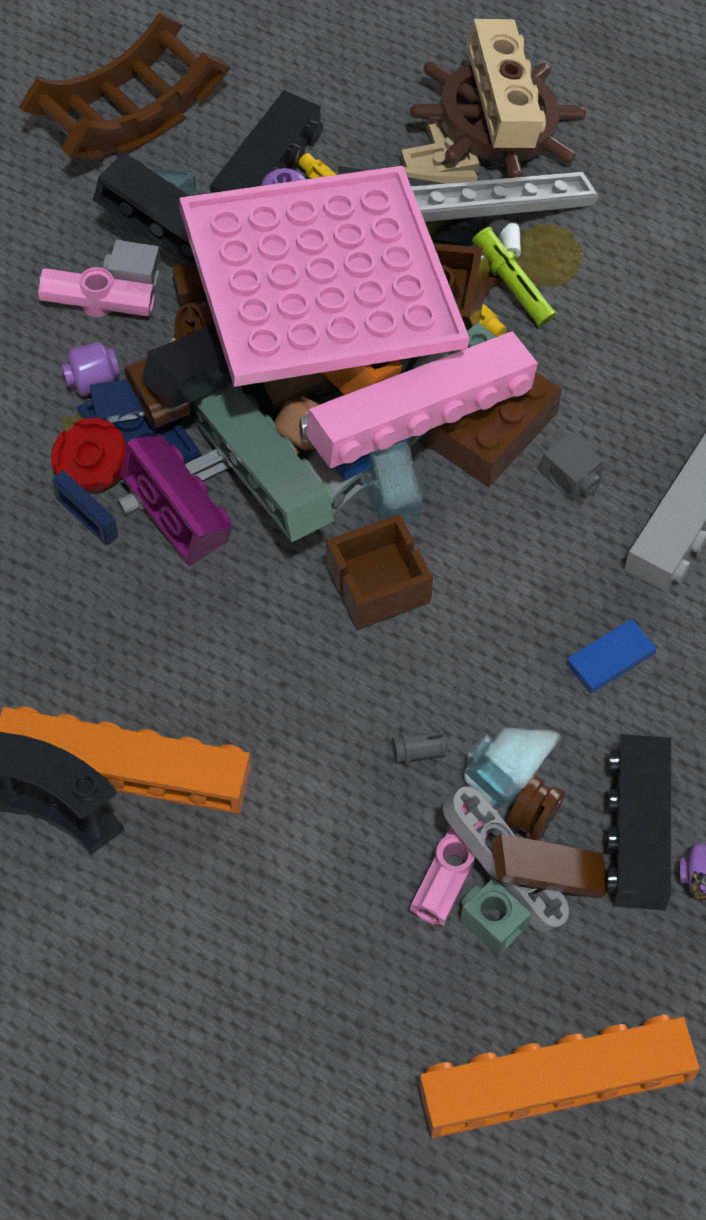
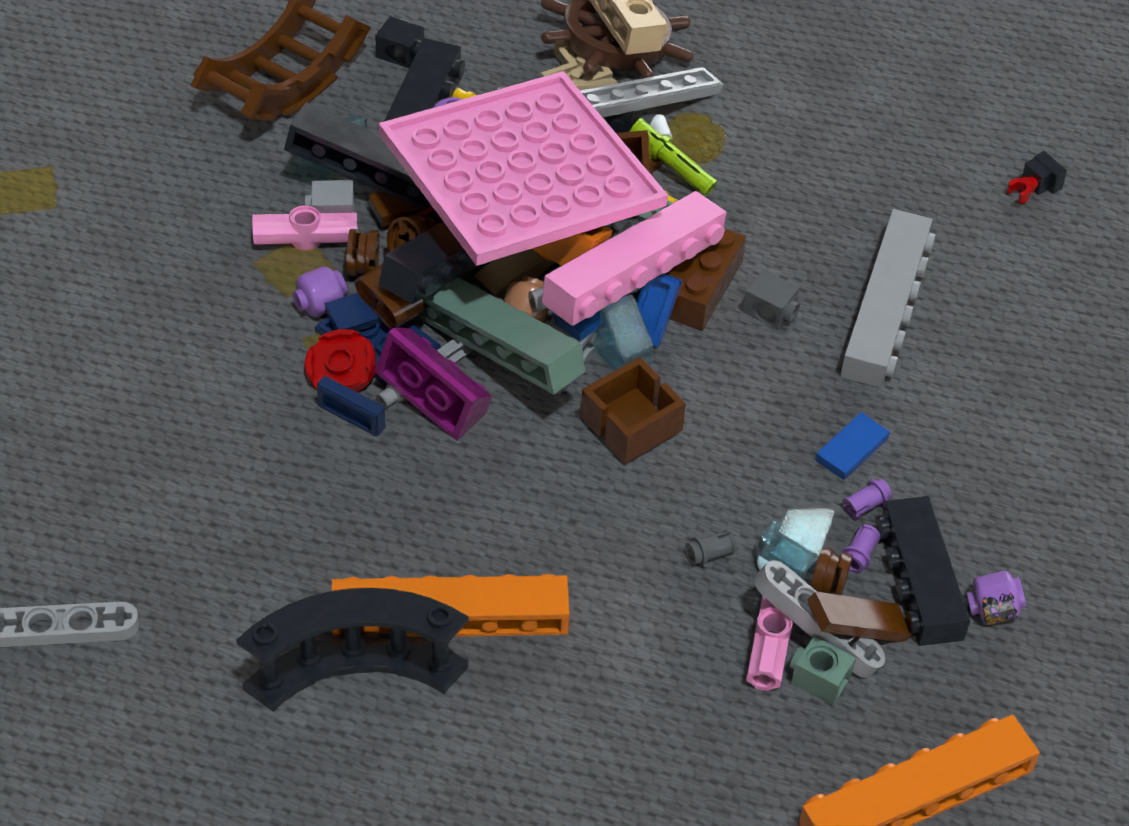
camera: 15 degrees left, 10 degrees down
(74, 329) = (287, 264): none -> clear yellow piece
(146, 330) = (366, 256): none -> reddish brown wheel
(258, 86) = (398, 41): none -> black brick
(438, 456) = (657, 303): none -> blue tile
(582, 780) = (862, 547): none -> medium lavender pin
(607, 722) = (867, 498): none -> medium lavender pin

